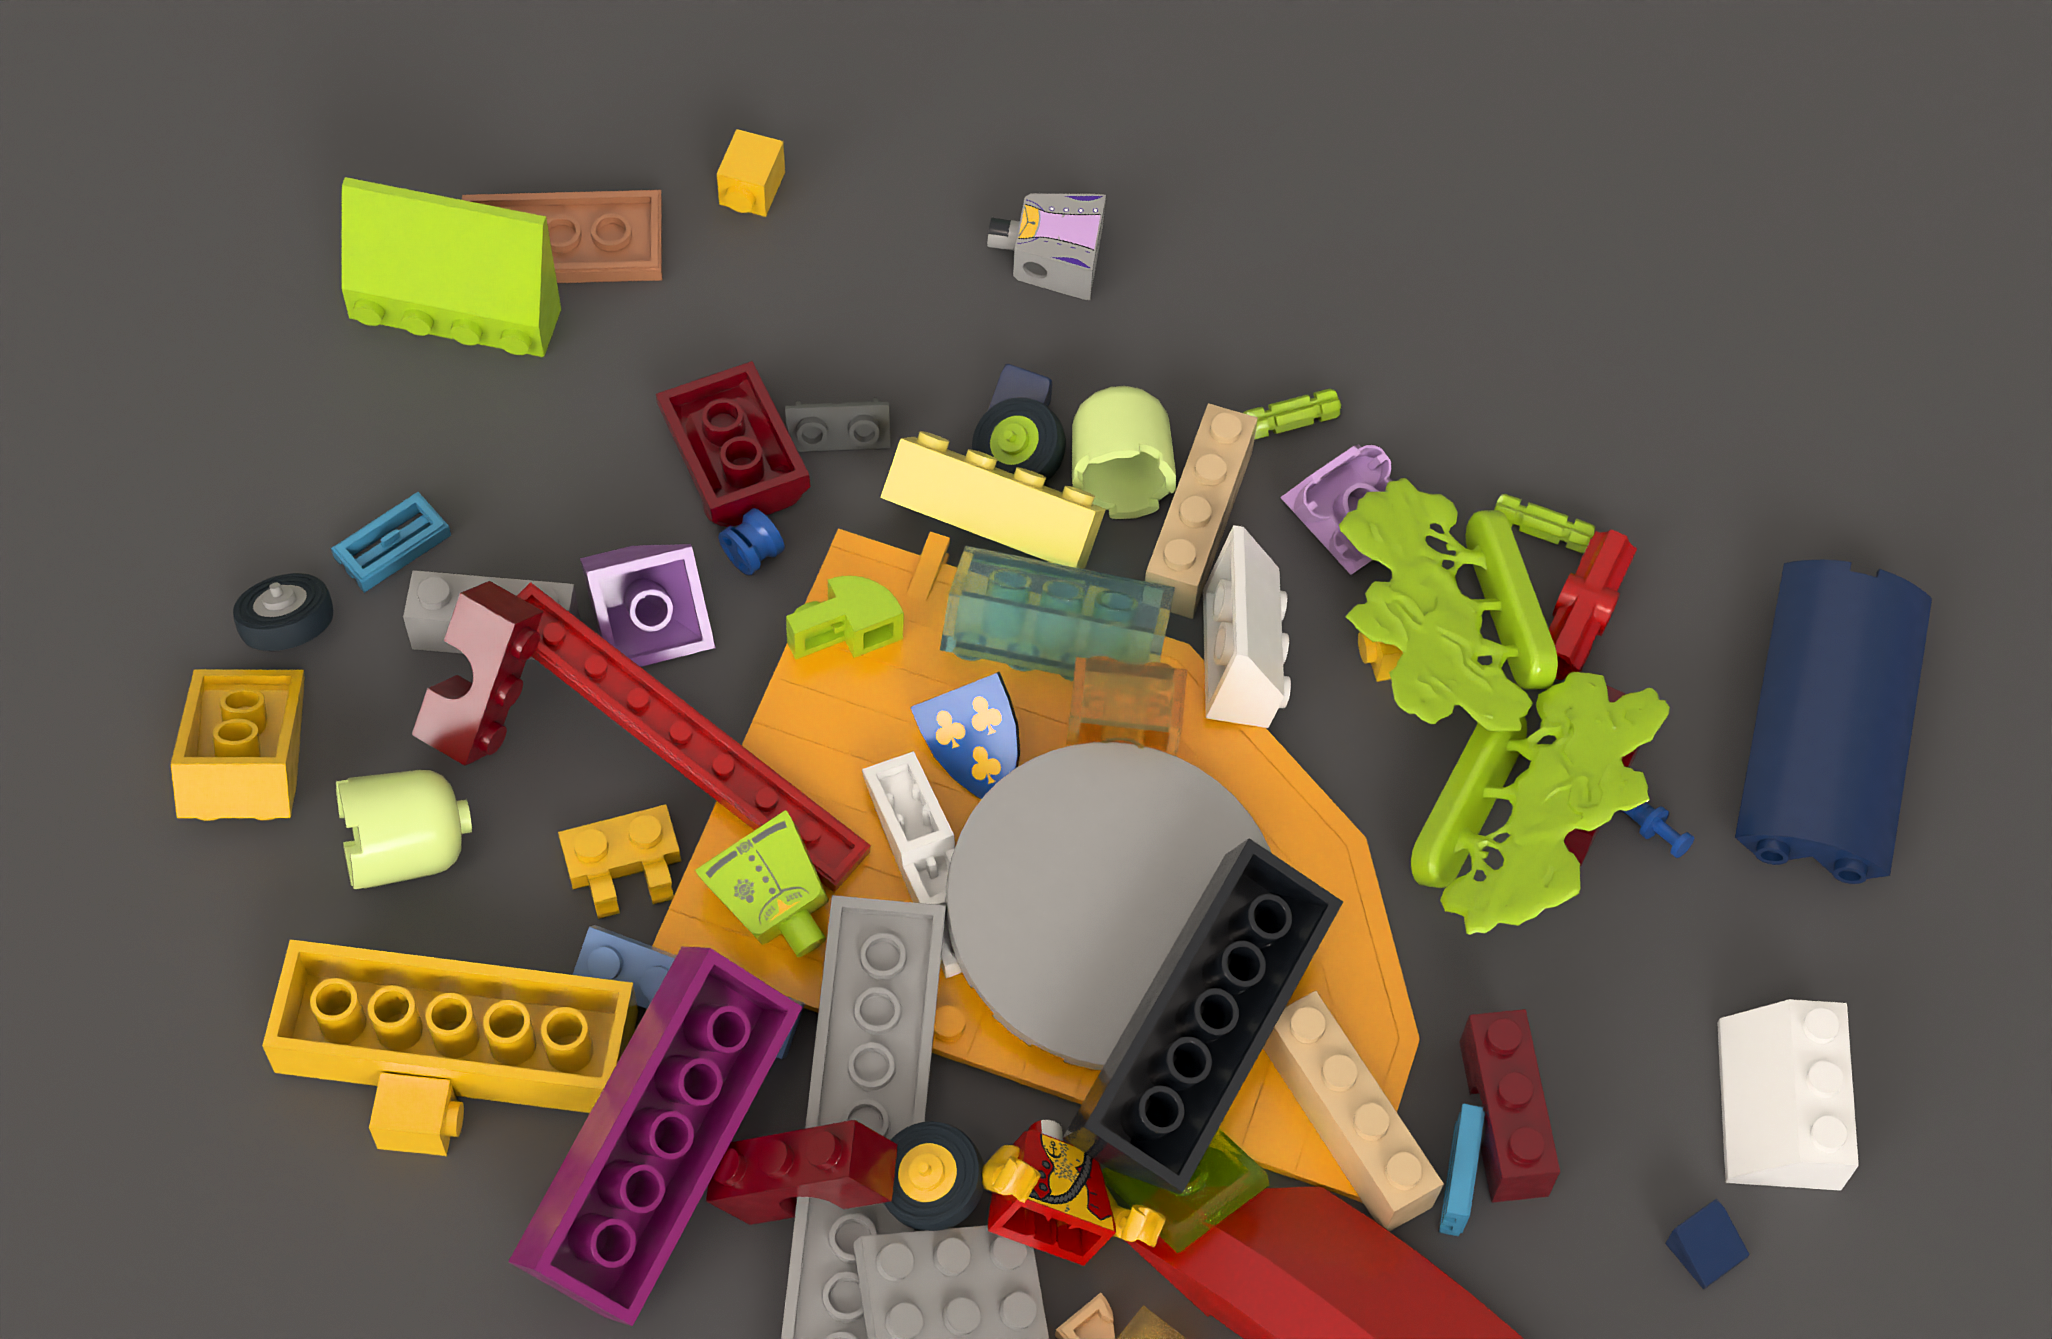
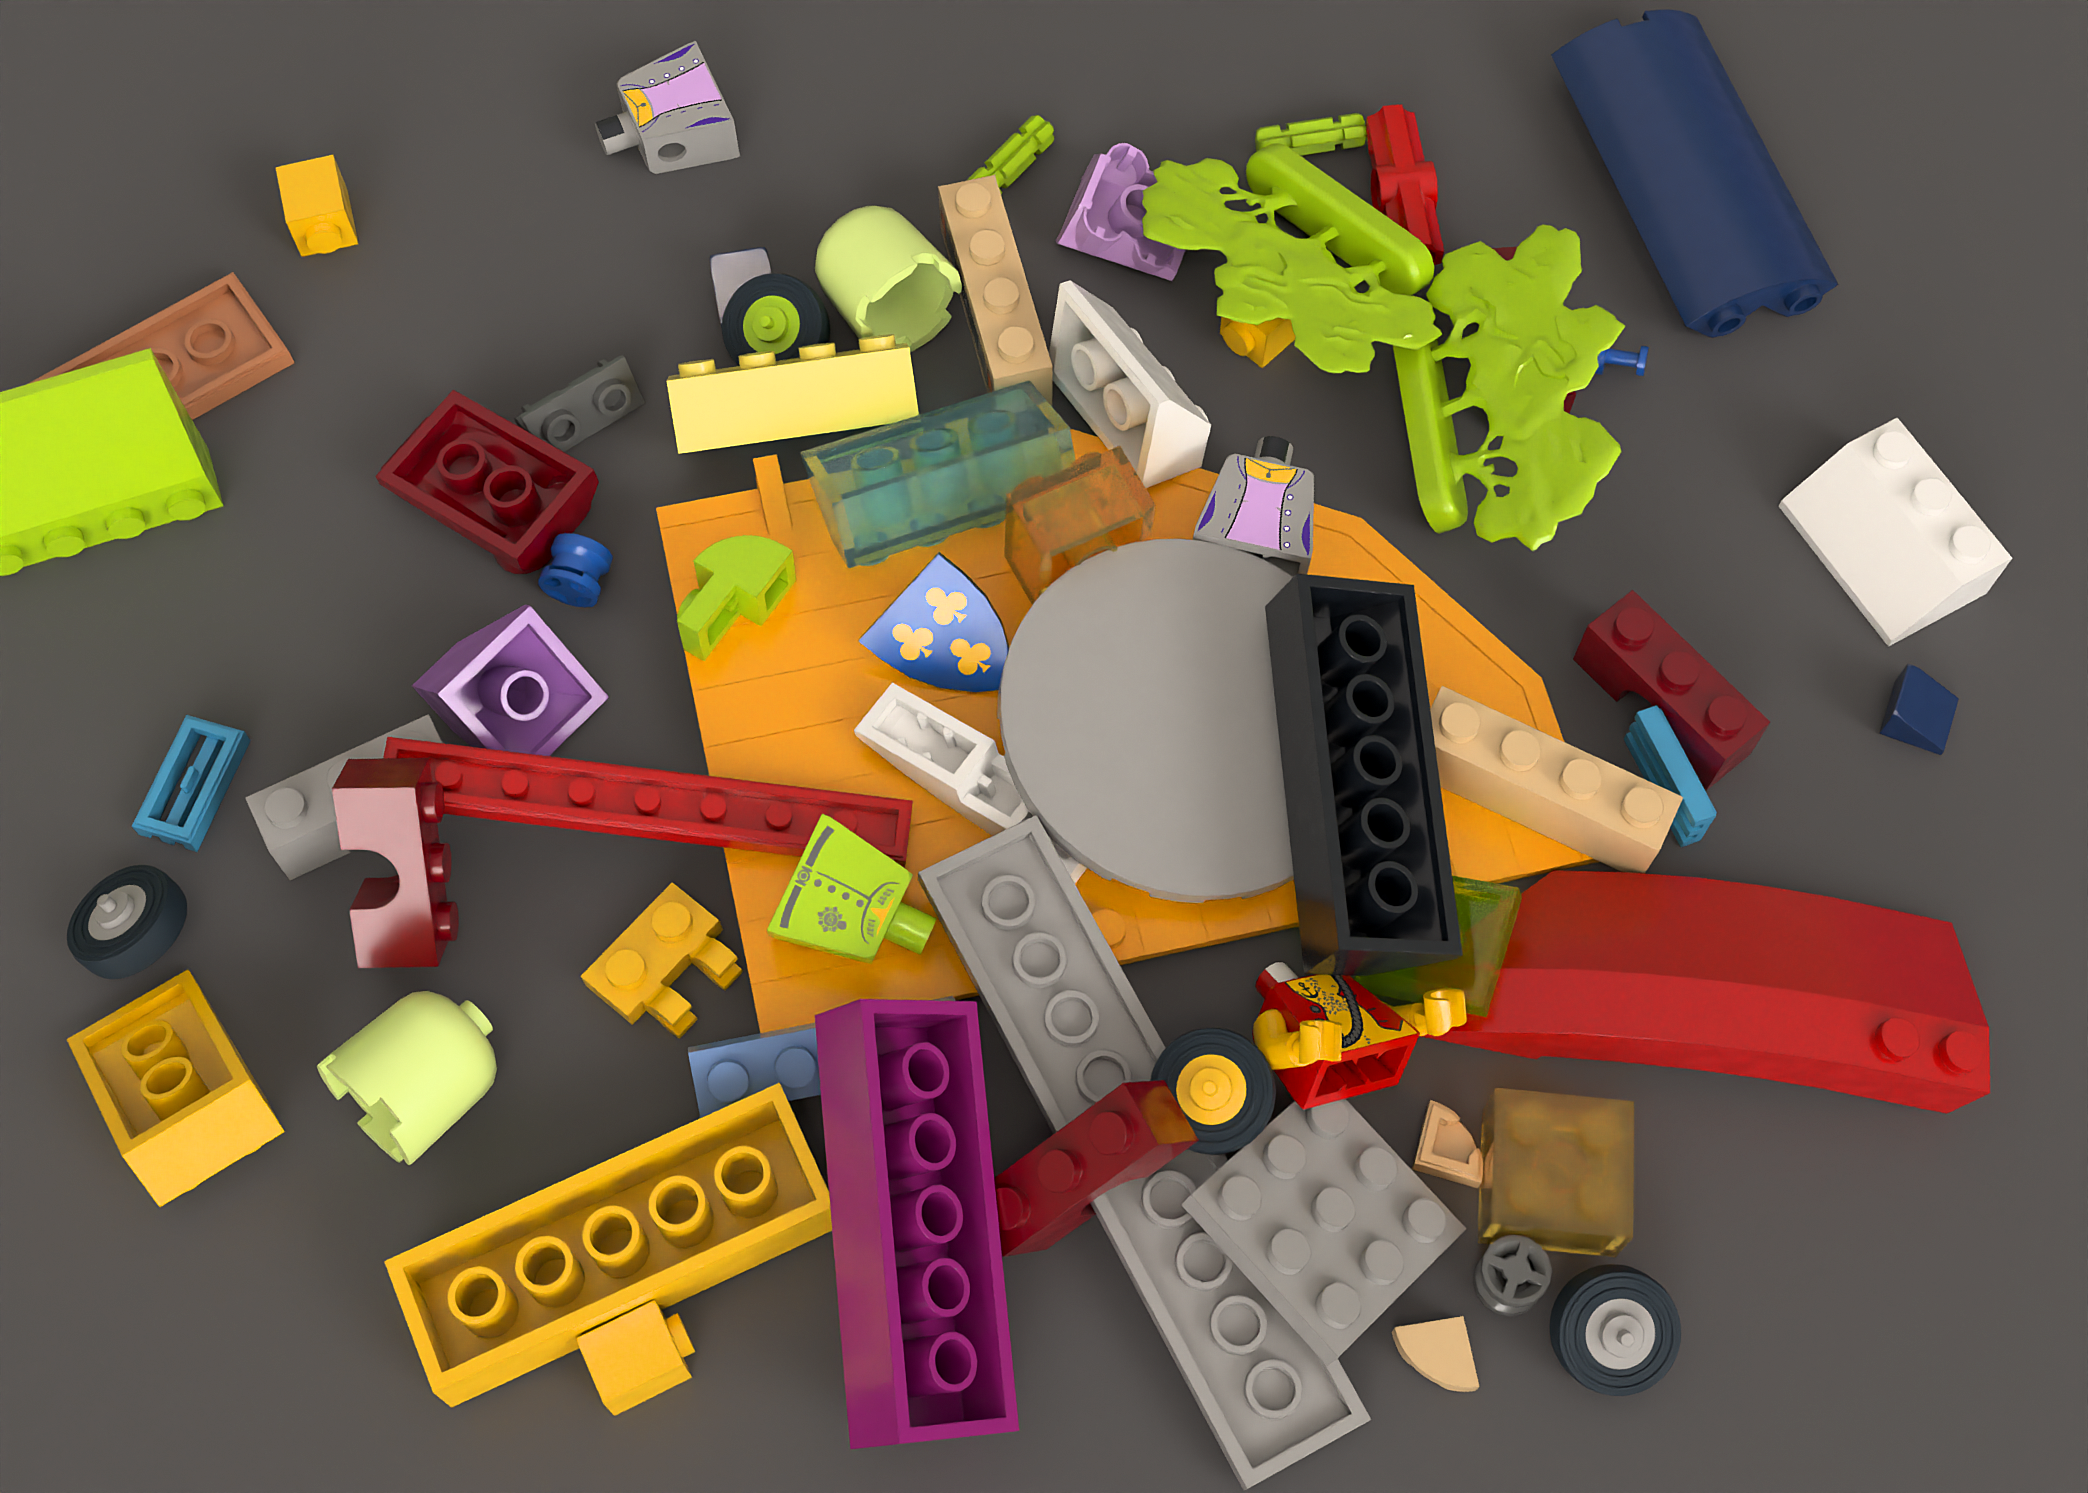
camera: 30 degrees left, 5 degrees up
(1282, 784) = (1263, 507): none -> torso

